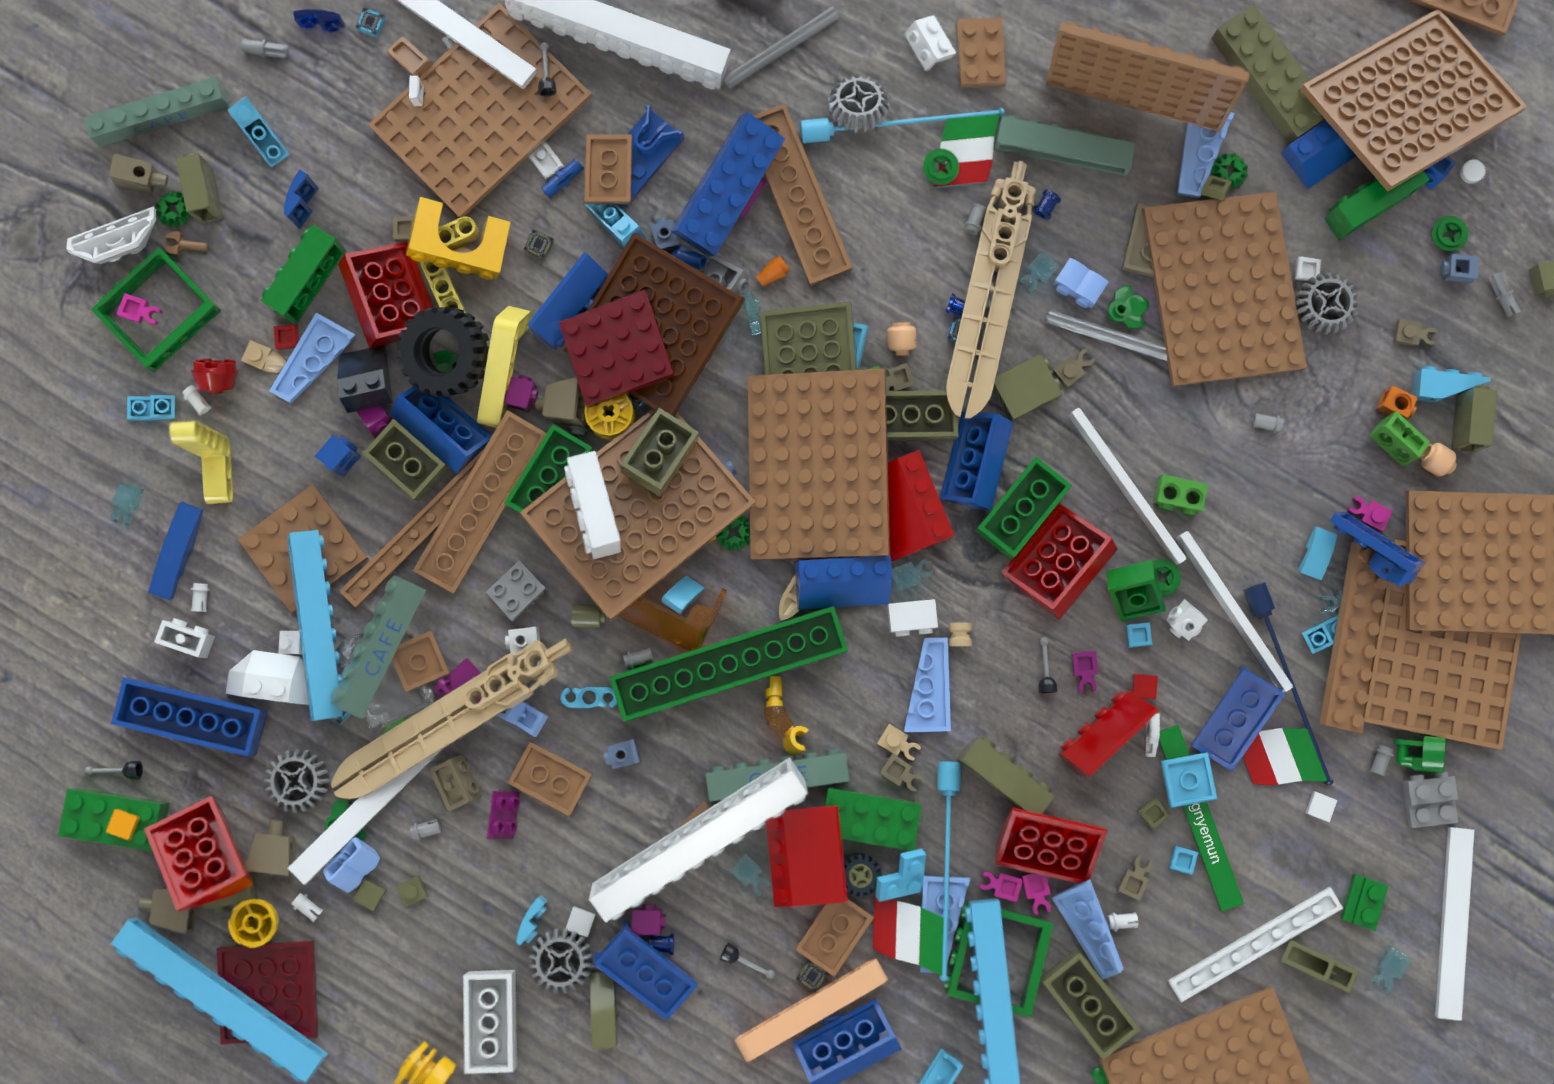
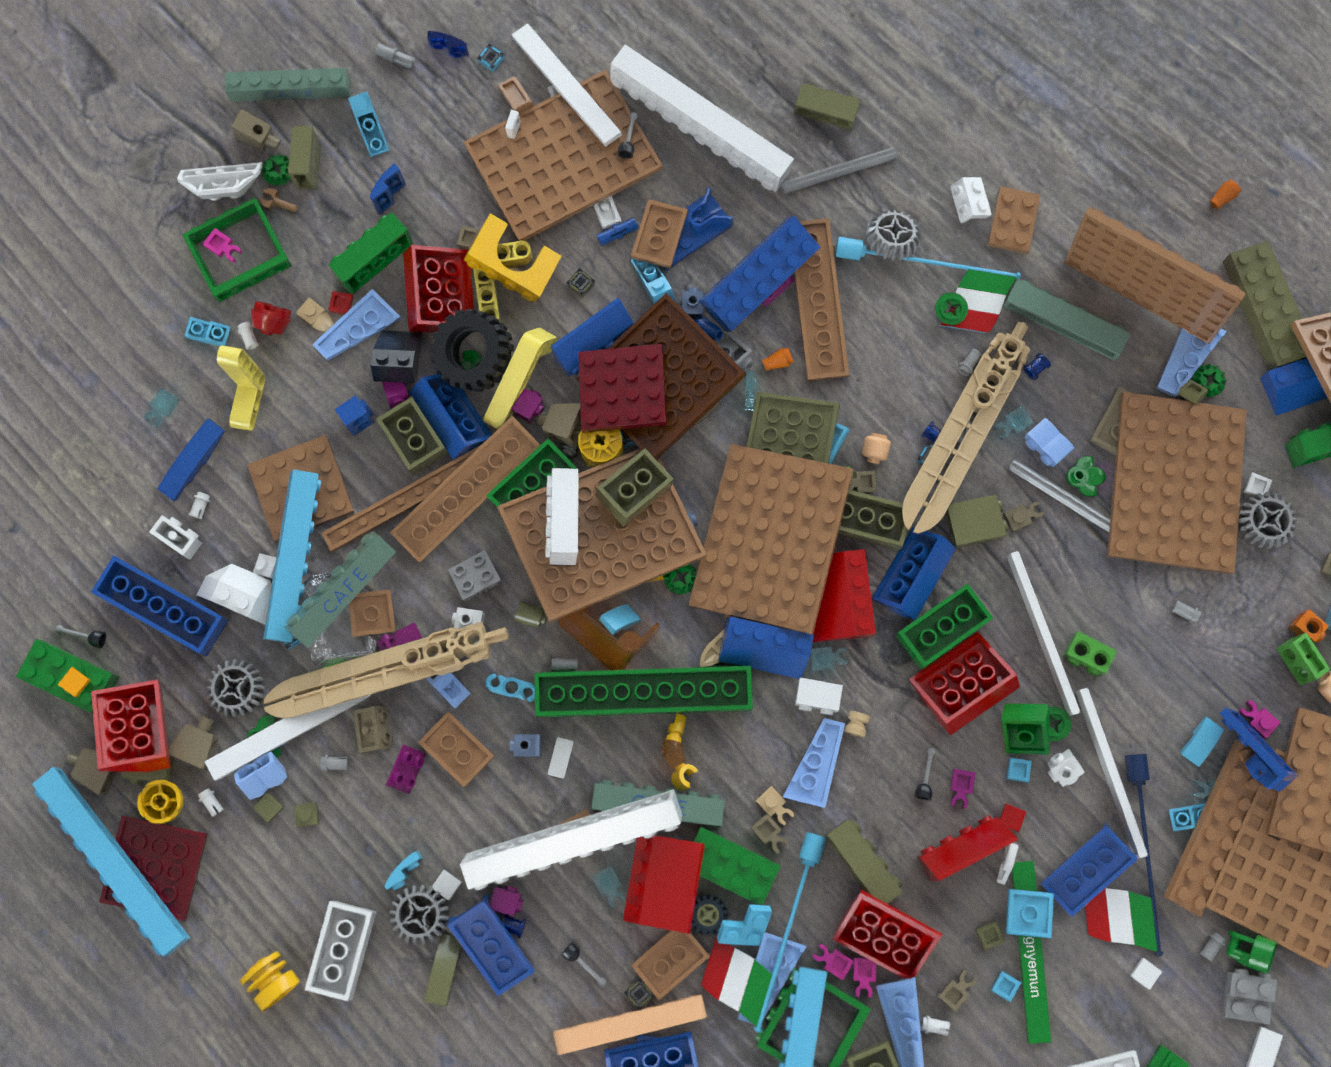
camera: 20 degrees right, 5 degrees down
(661, 756) = (560, 758): none -> white sticker

